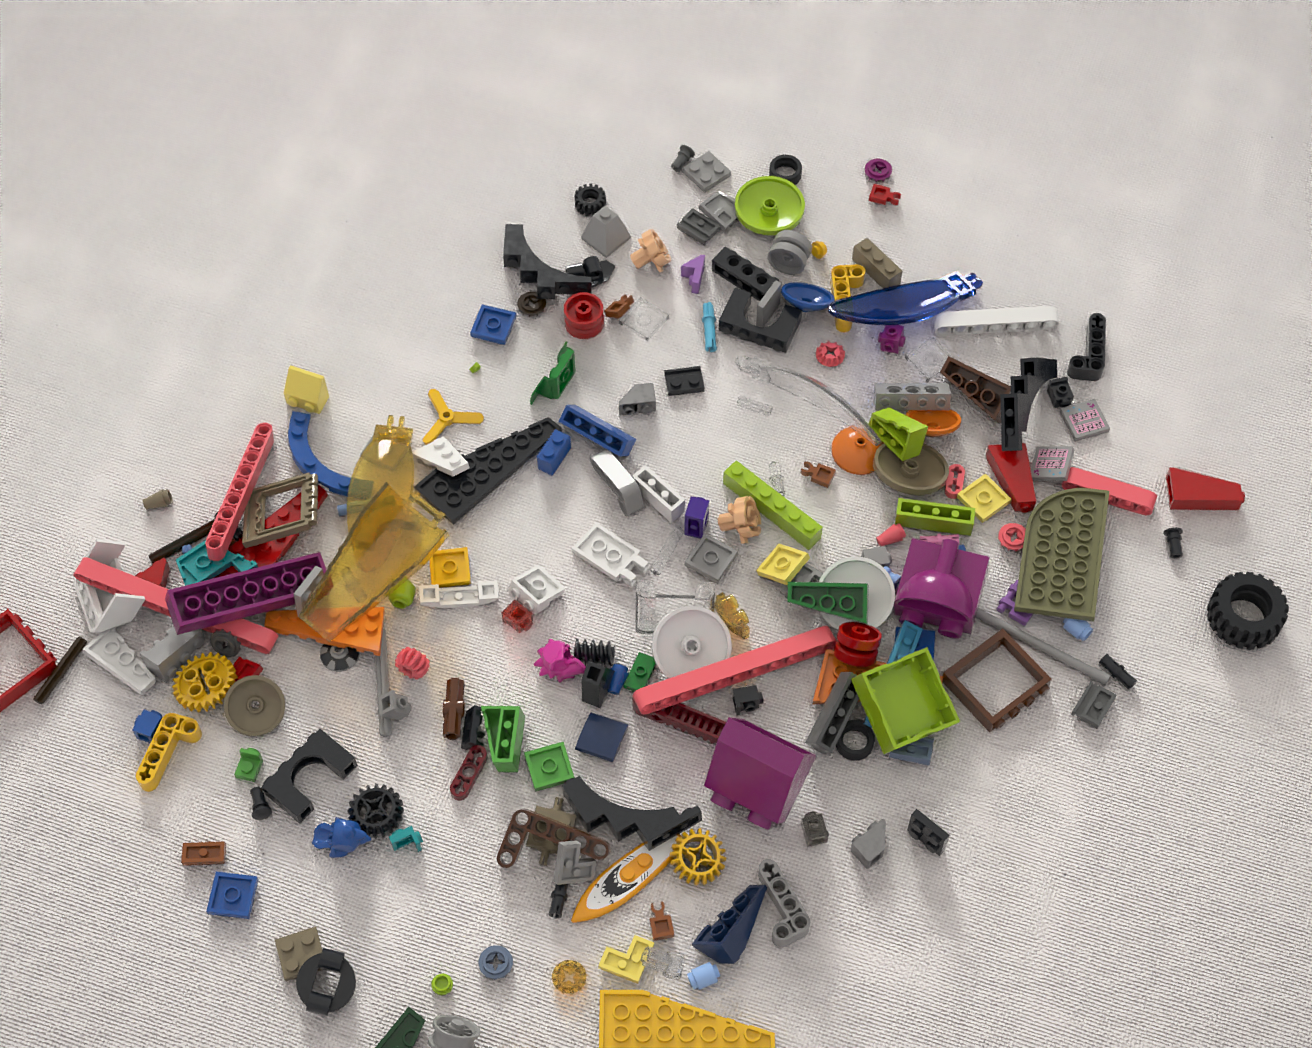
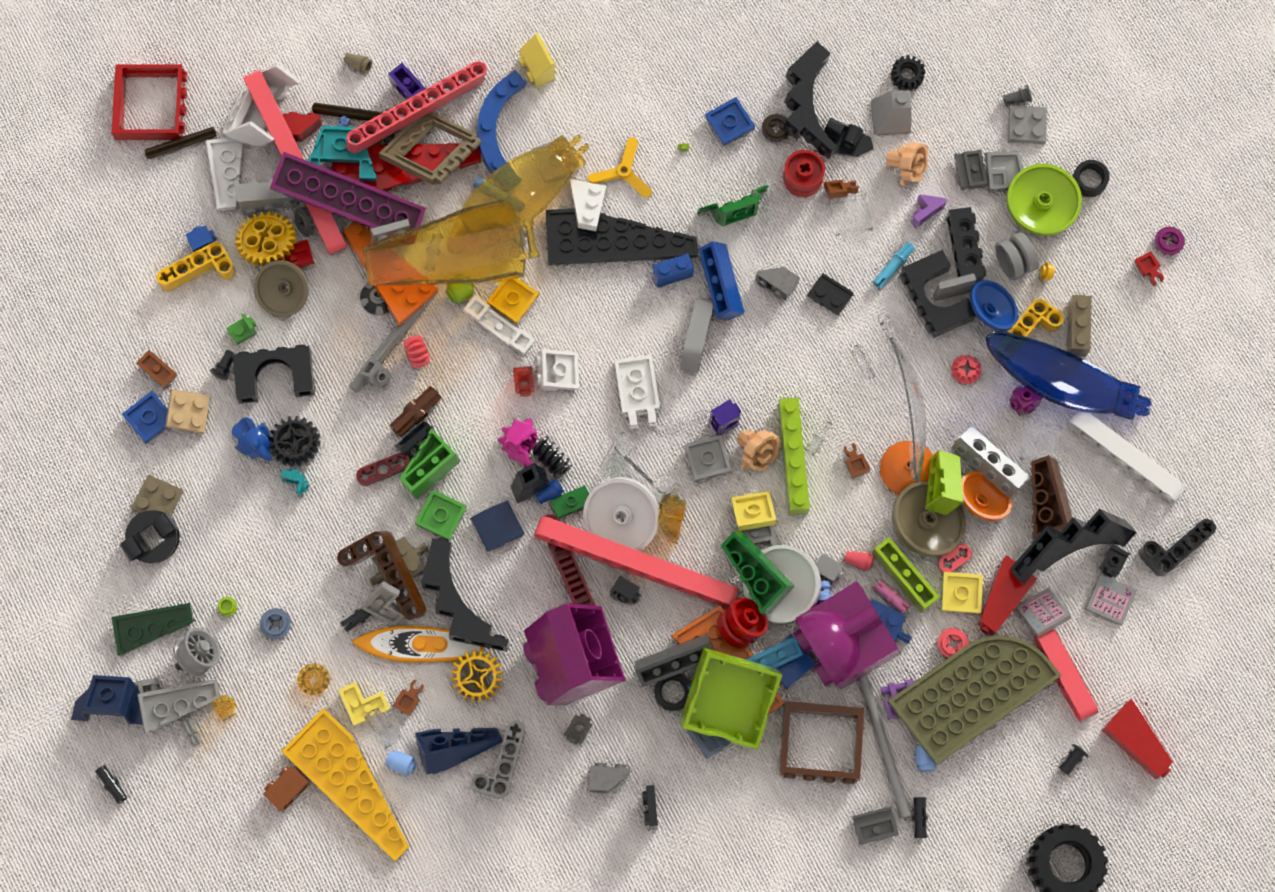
camera: 40 degrees right, 15 degrees up
(213, 482) = (405, 82): none -> dark purple brick
(262, 862) = (187, 411): none -> tan plate
(659, 494) = (716, 372): white brick -> none

